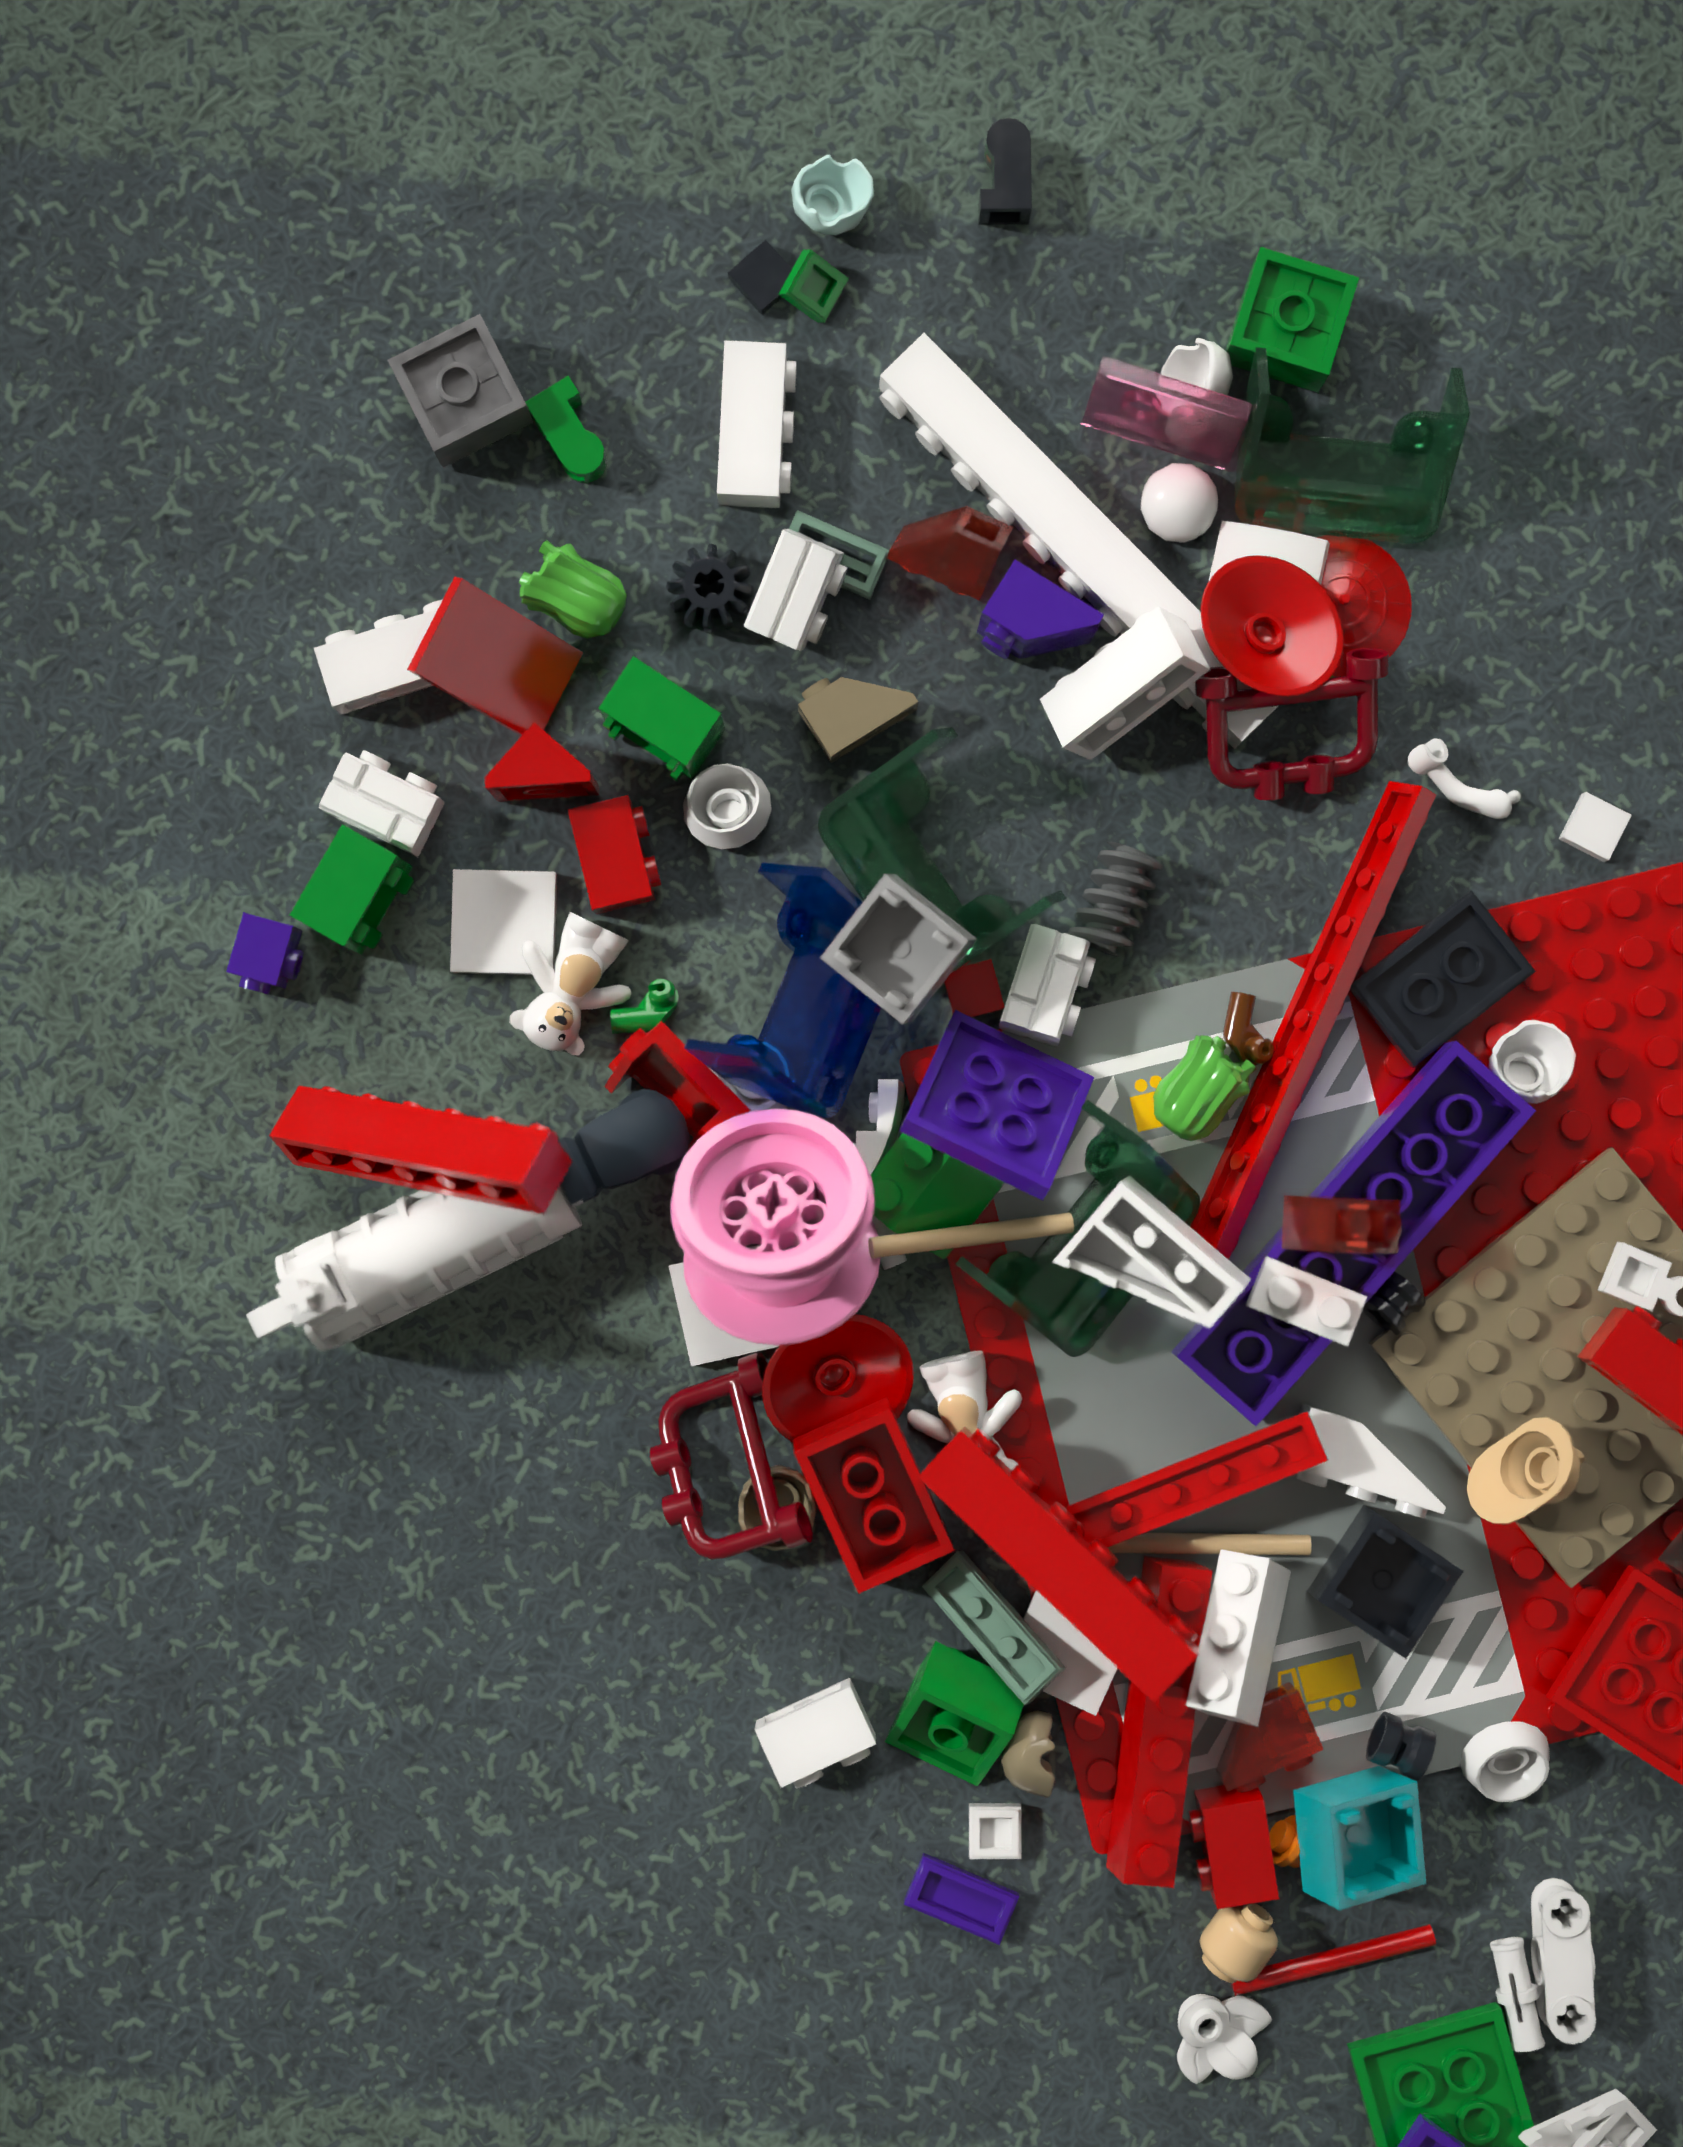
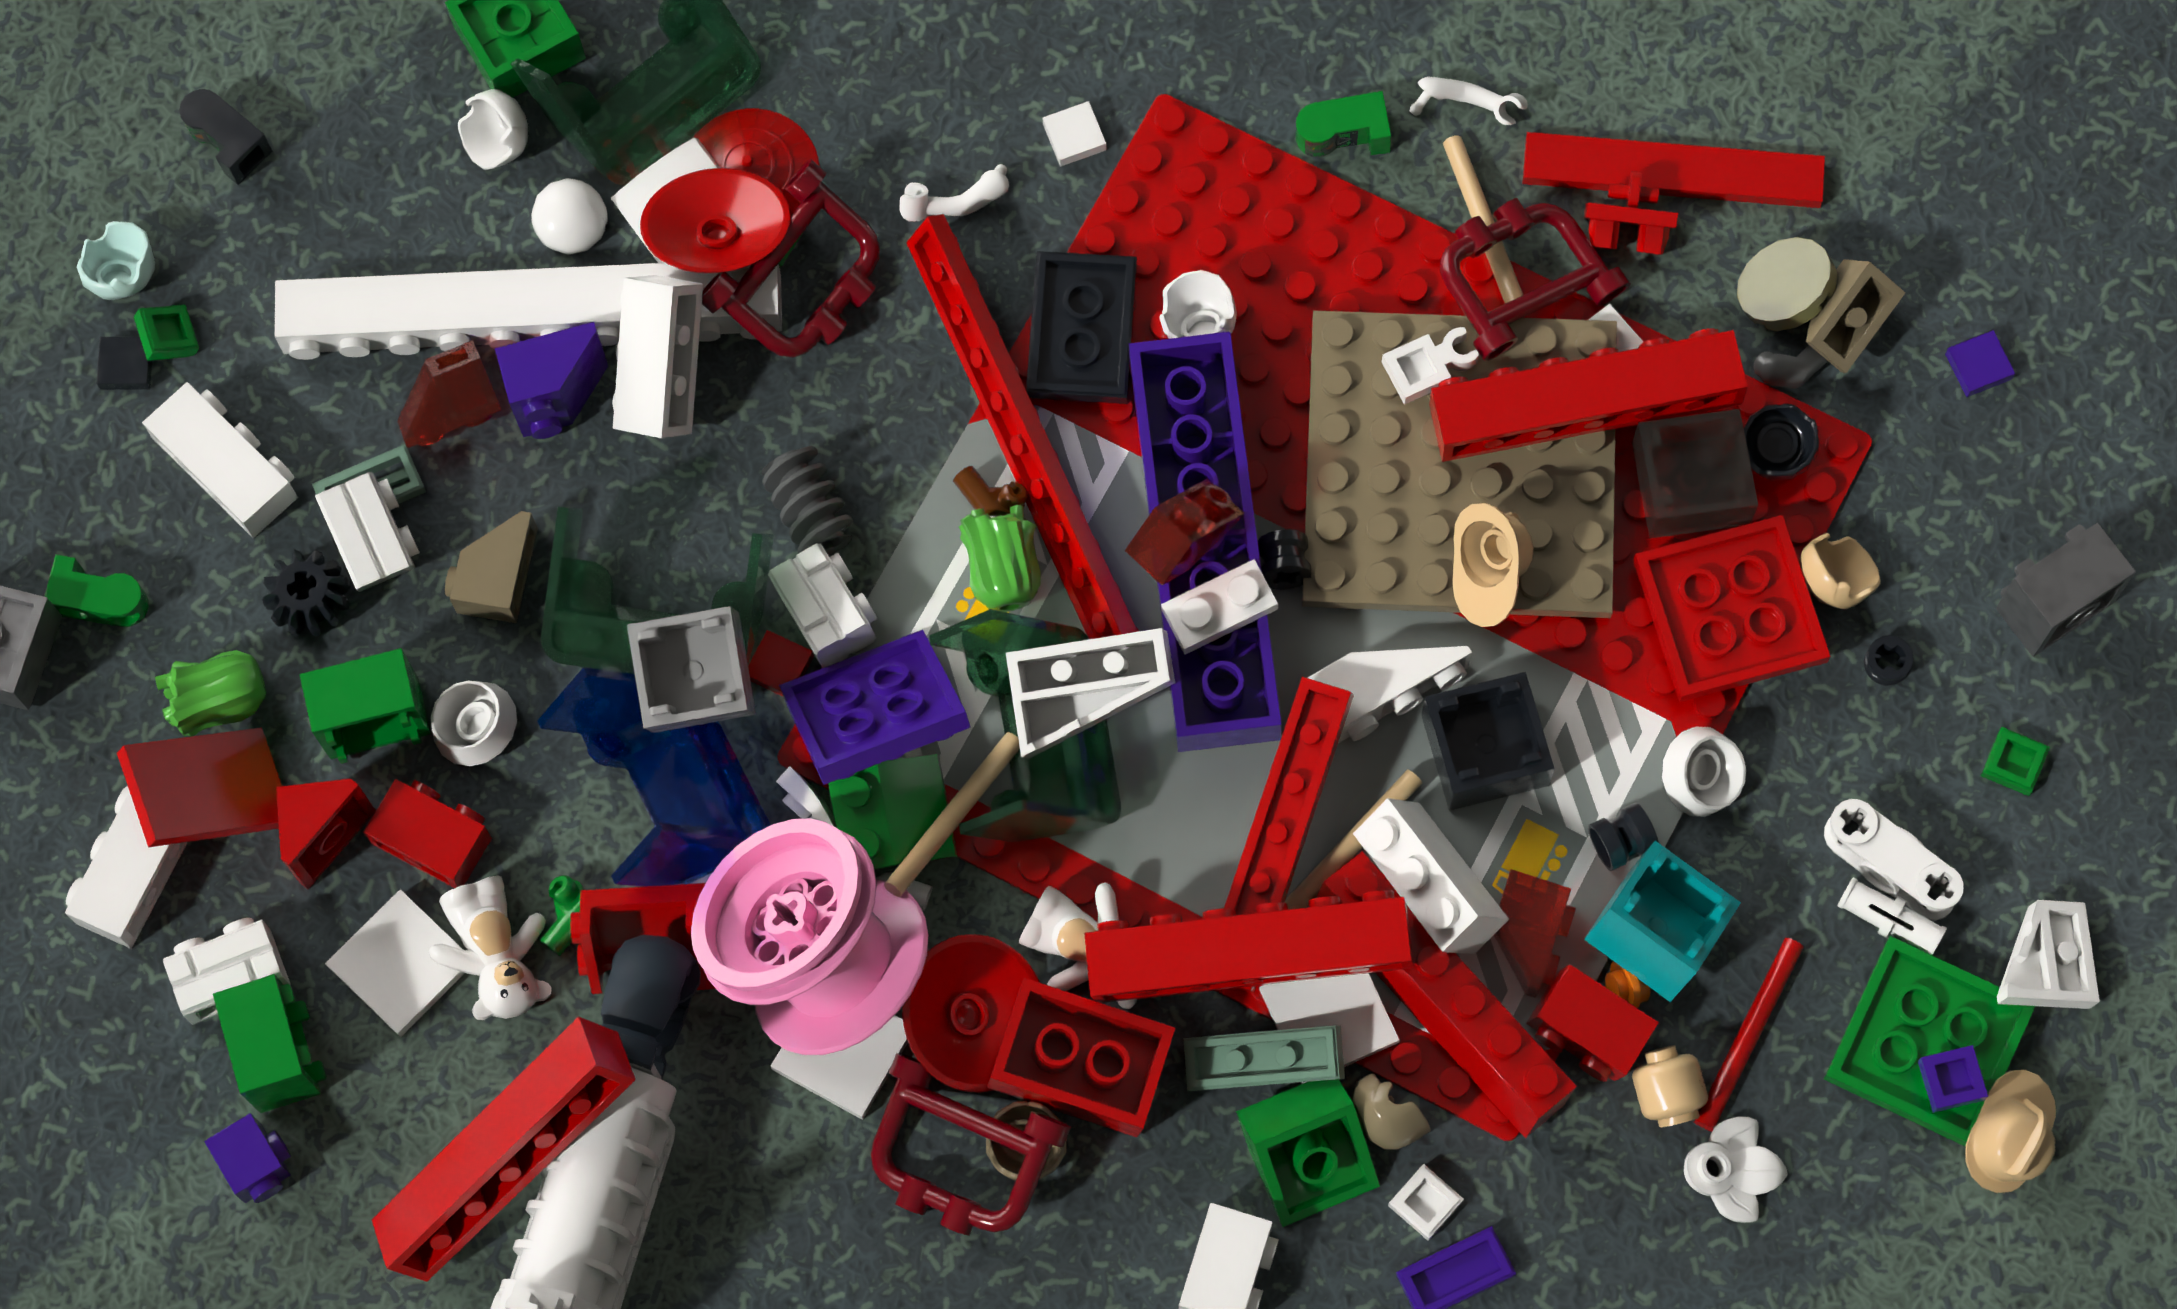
camera: 45 degrees left, 15 degrees down
(1165, 413) = (496, 167): clear pink tile -> none

